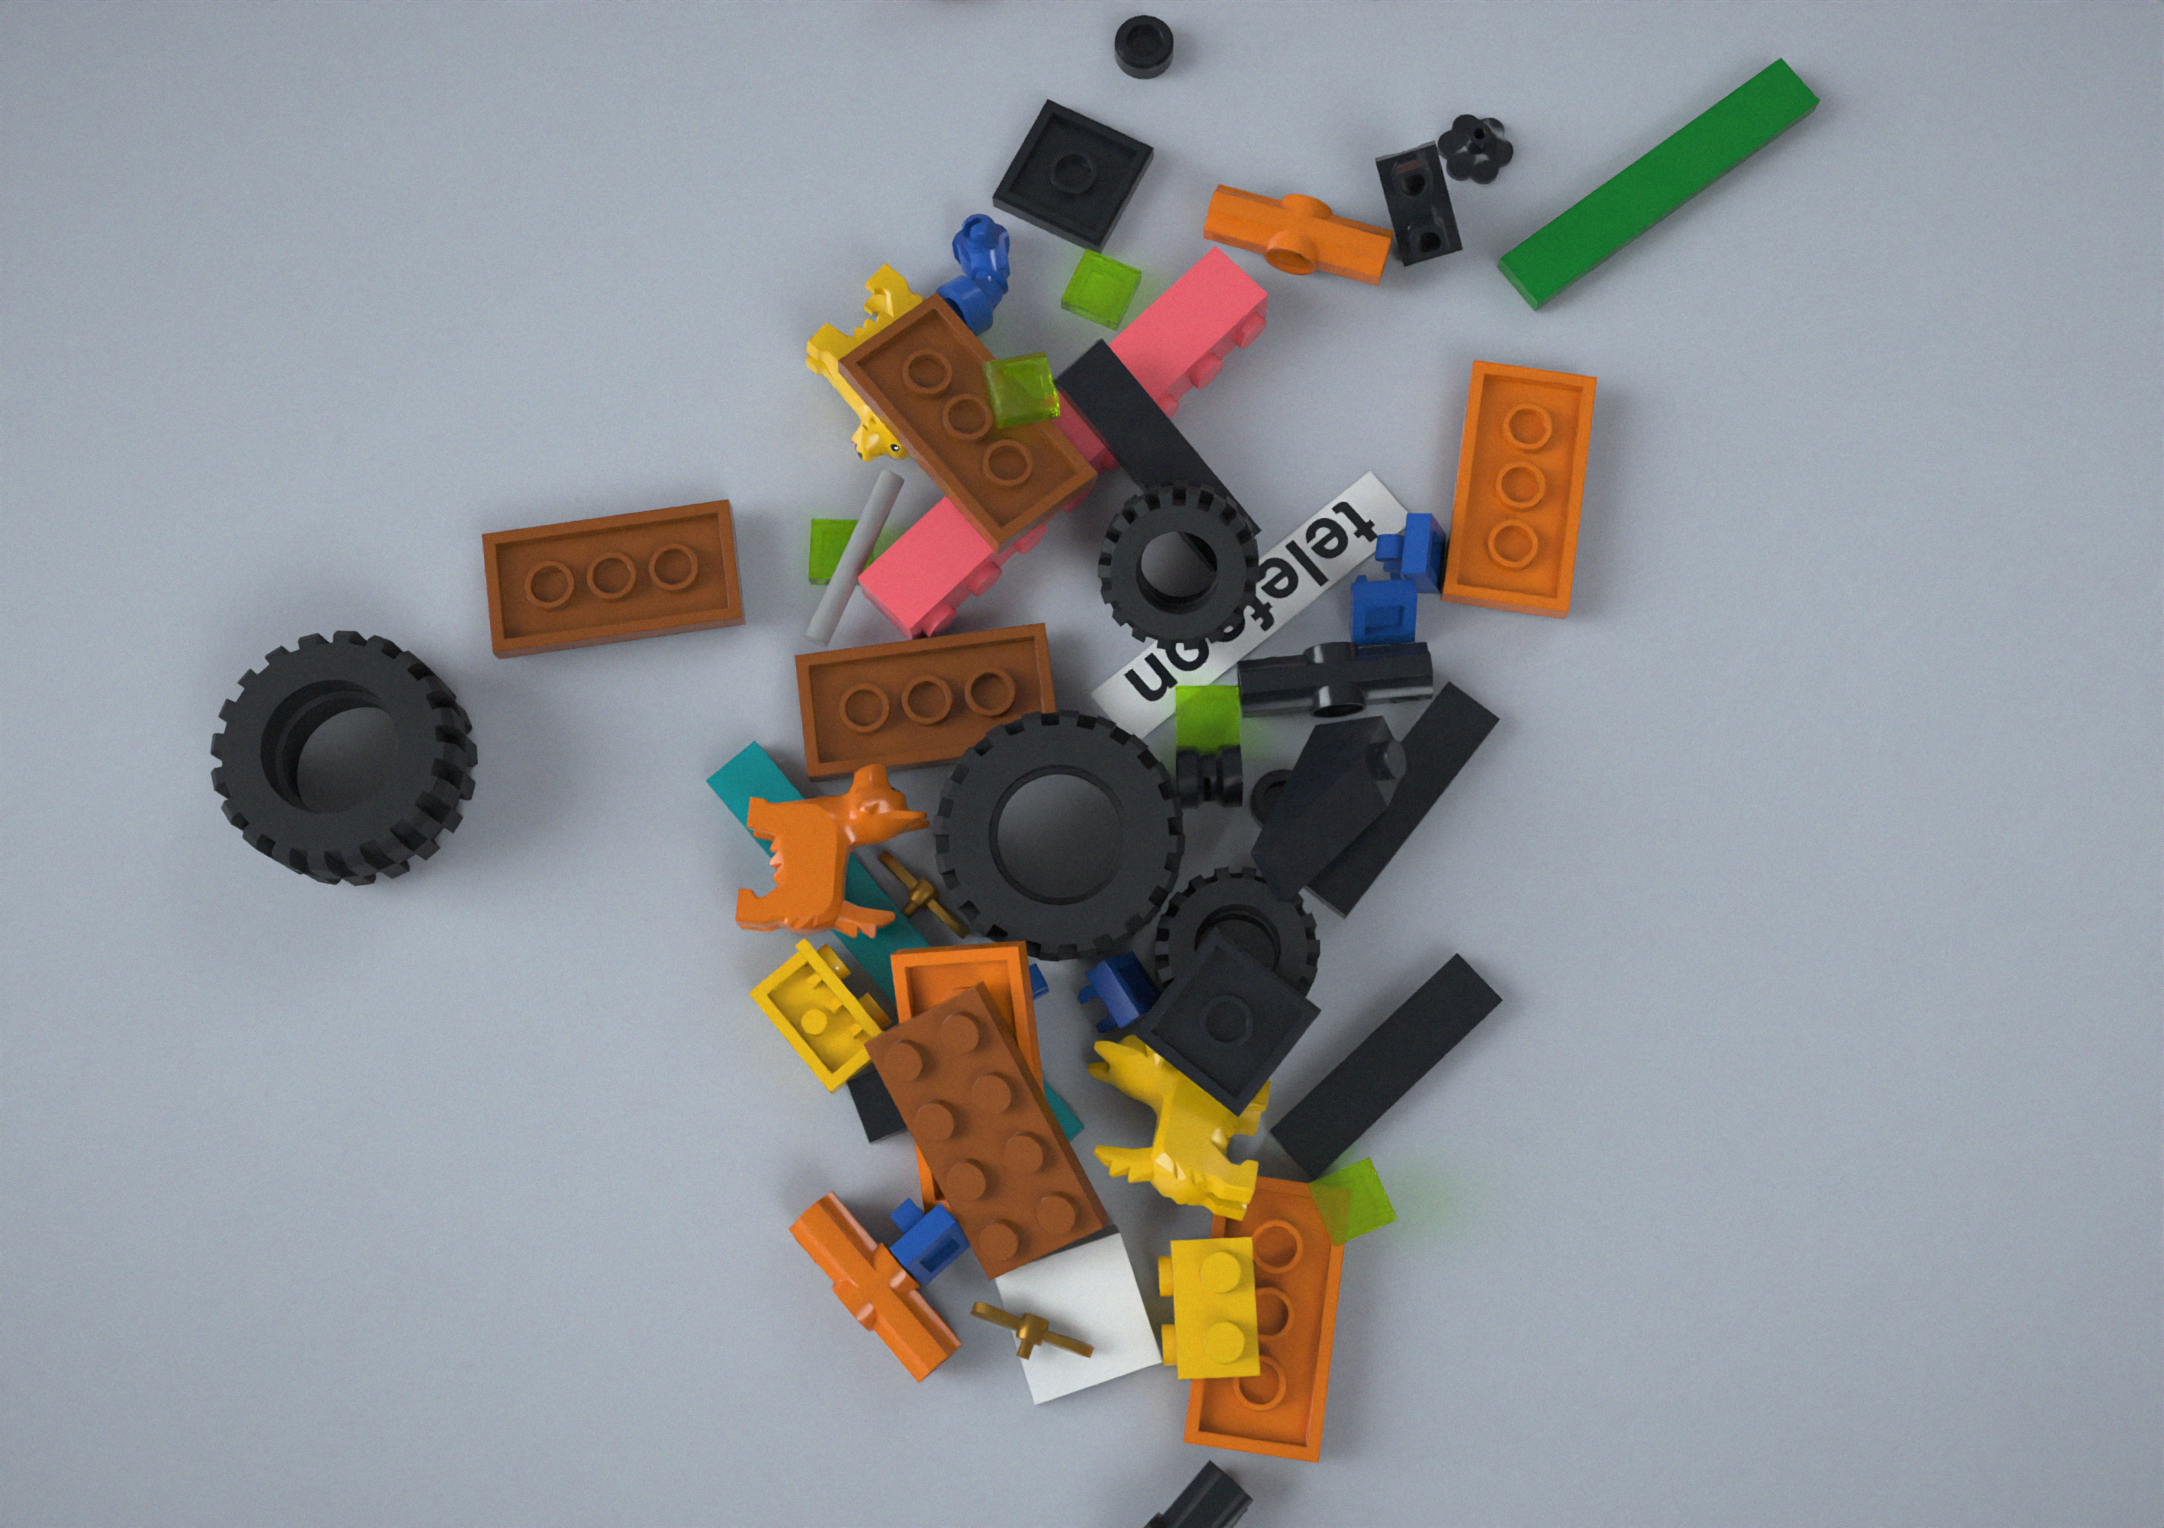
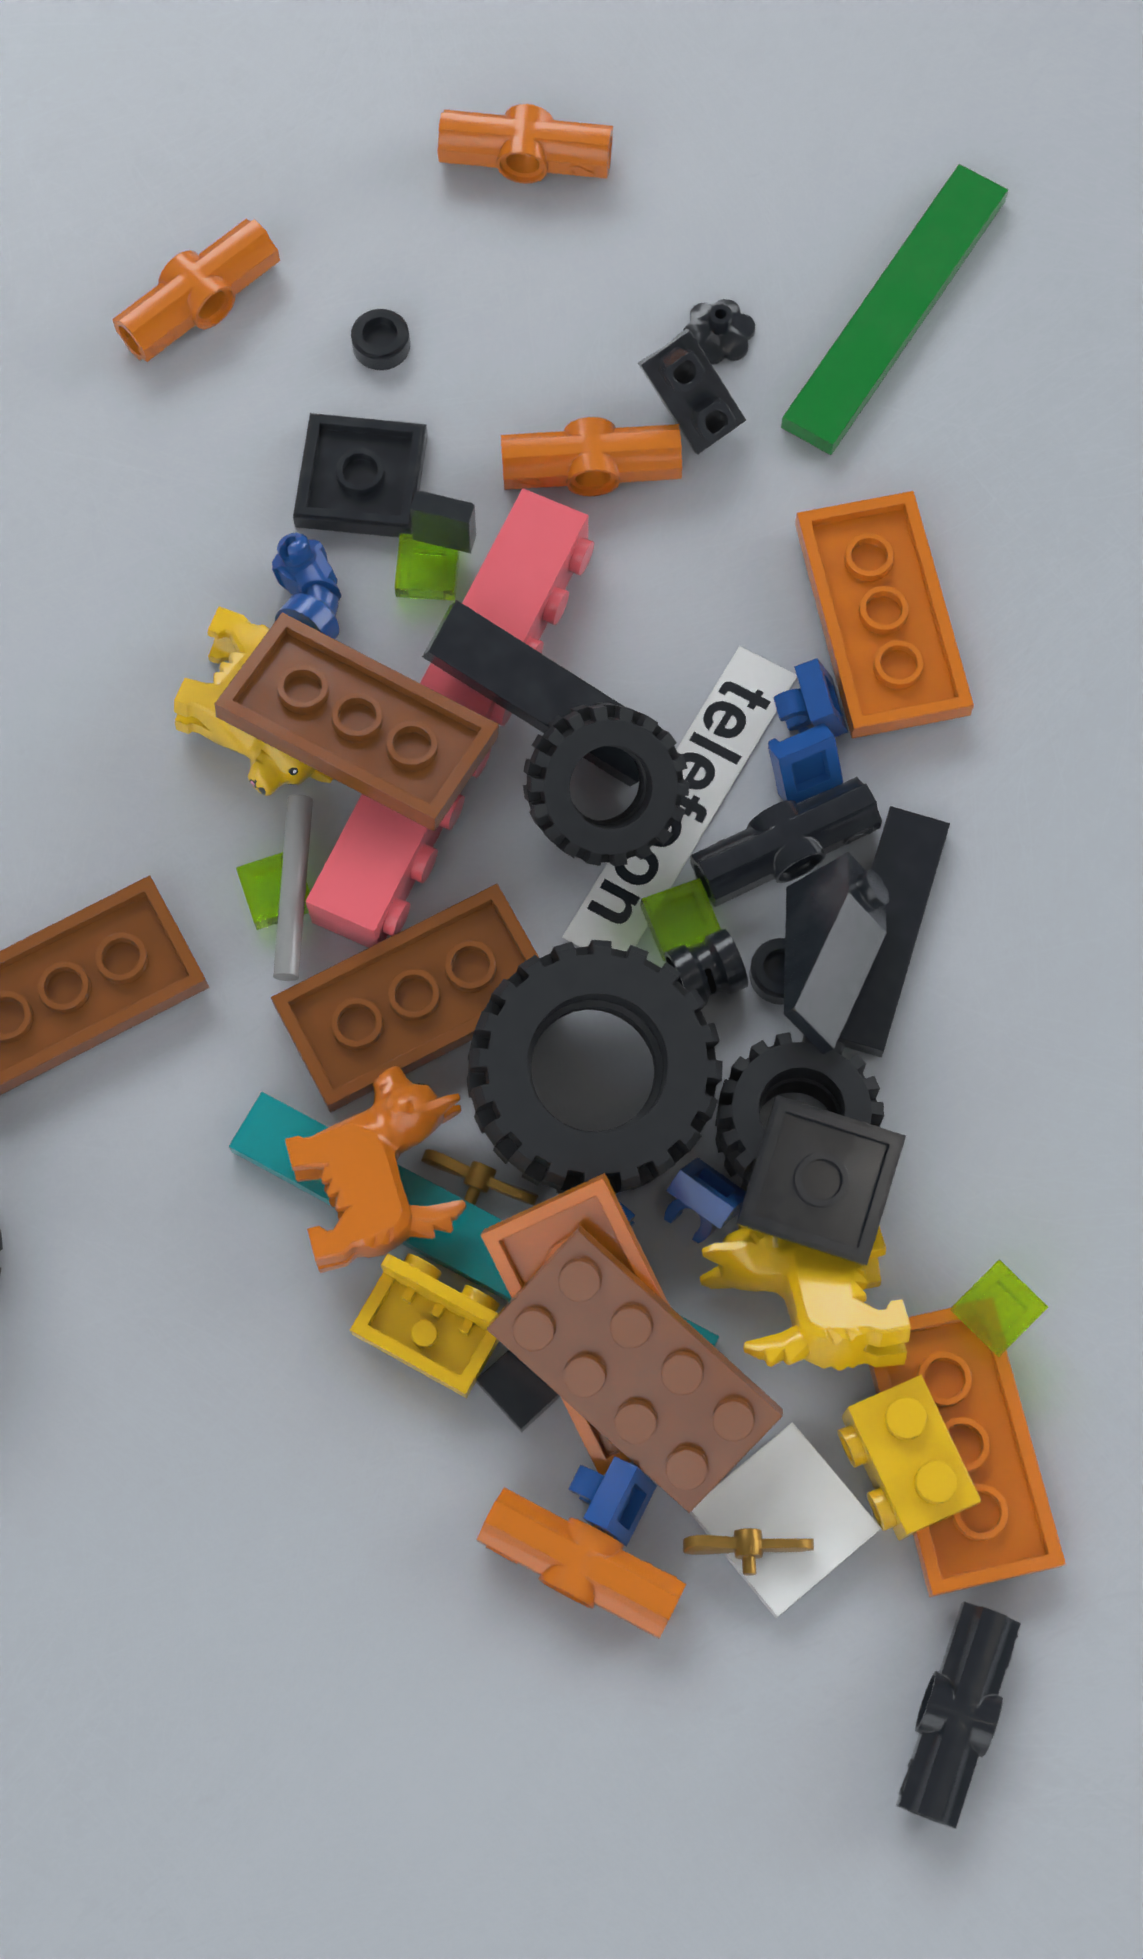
camera: 25 degrees left, 5 degrees down
(1021, 389) = (398, 672): clear neon green tile -> none
(1128, 252) = (443, 521): none -> black tile
(1385, 1066) = (974, 1178): black tile -> none

